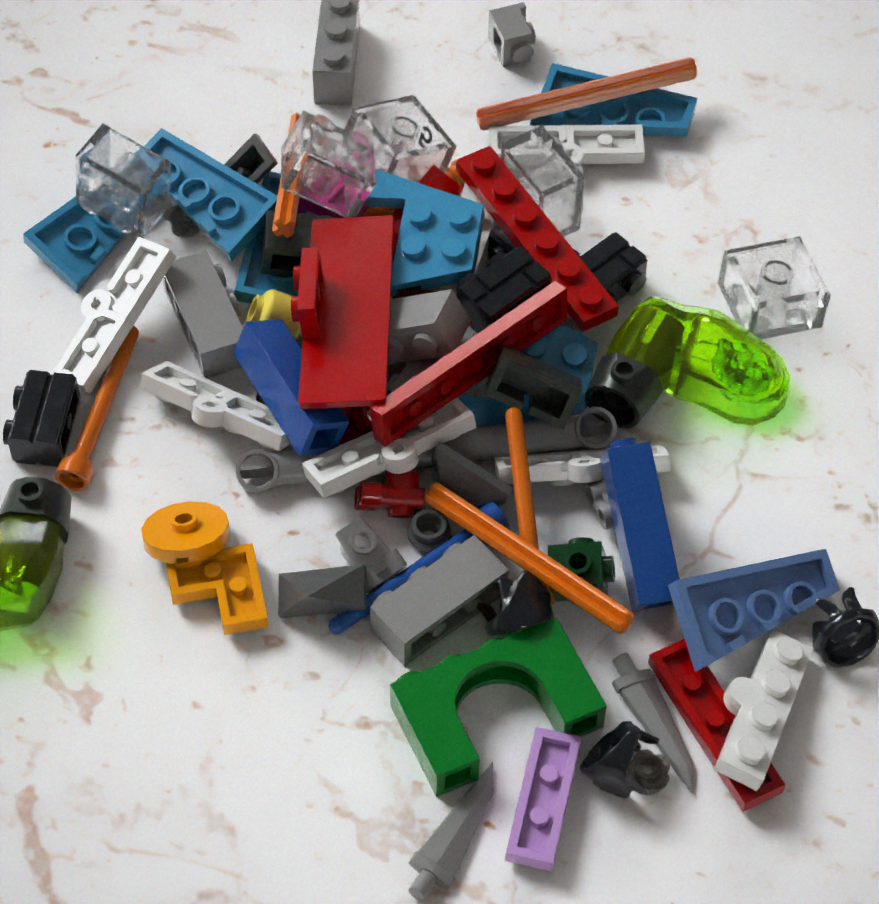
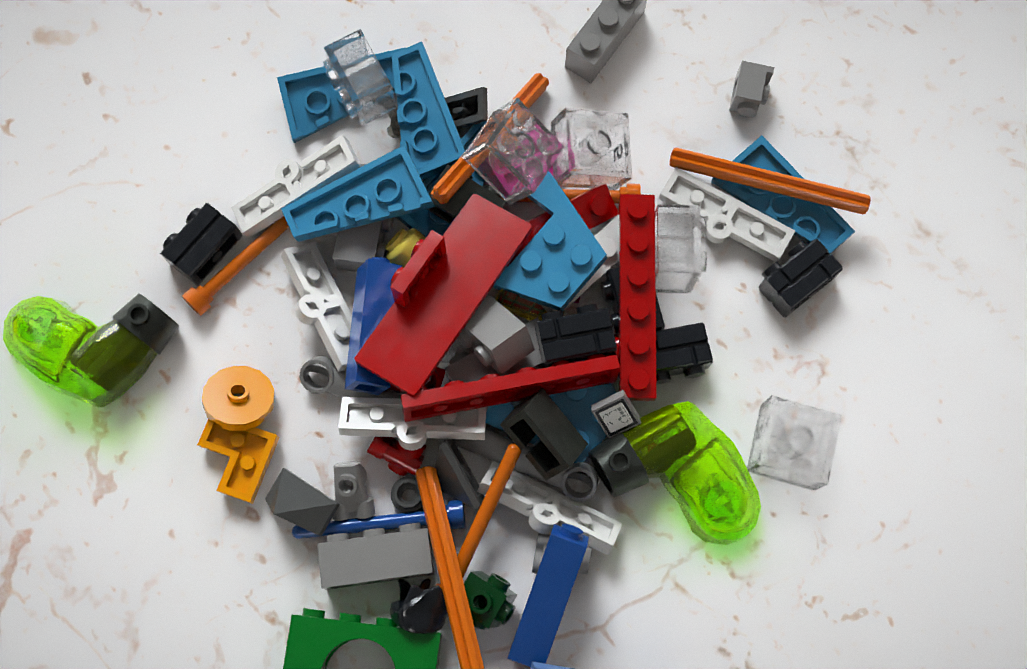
camera: 30 degrees right, 20 degrees up
(198, 278) = (365, 196): none -> dark azure wing
(589, 339) = (616, 414): none -> tile
(673, 161) = (799, 277): none -> black brick

